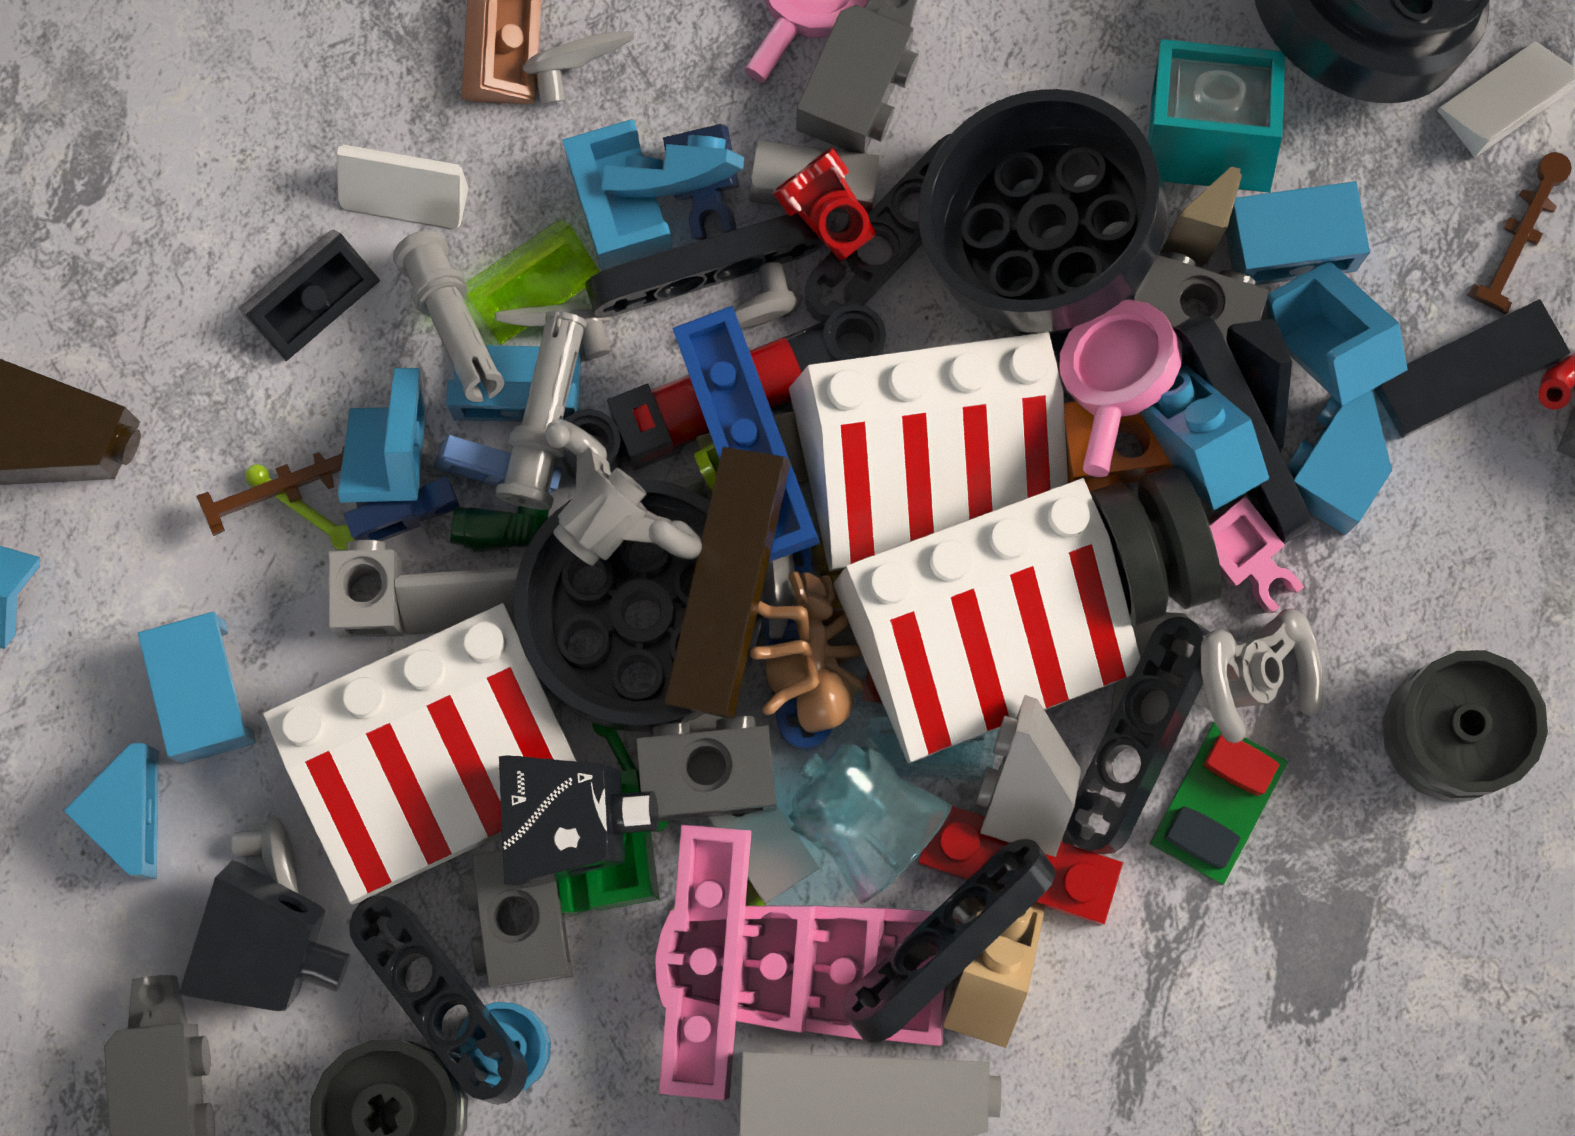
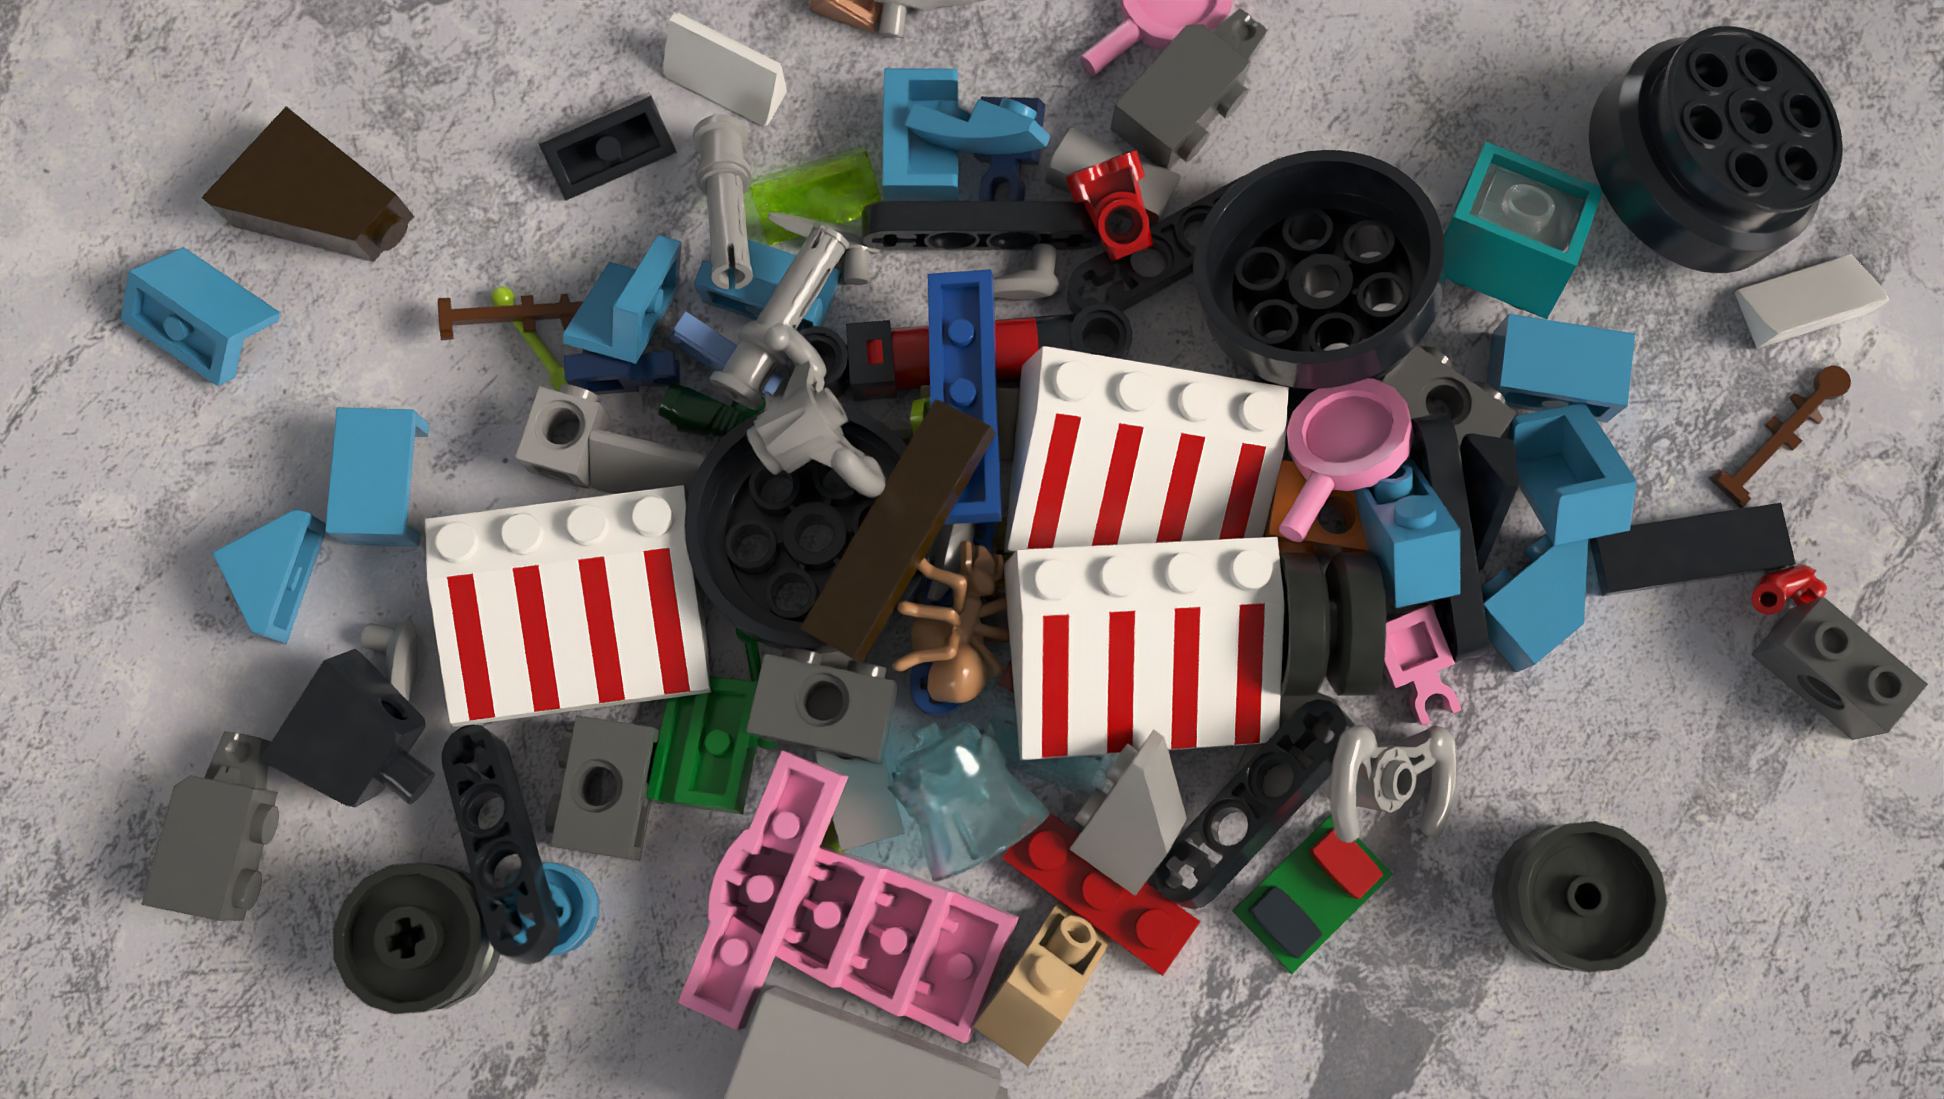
camera: 20 degrees right, 0 degrees up
(566, 818) = (670, 709): black torso -> none
(898, 990) = (936, 980): black beam -> none
(1205, 219) = (1474, 325): dark tan slope -> none

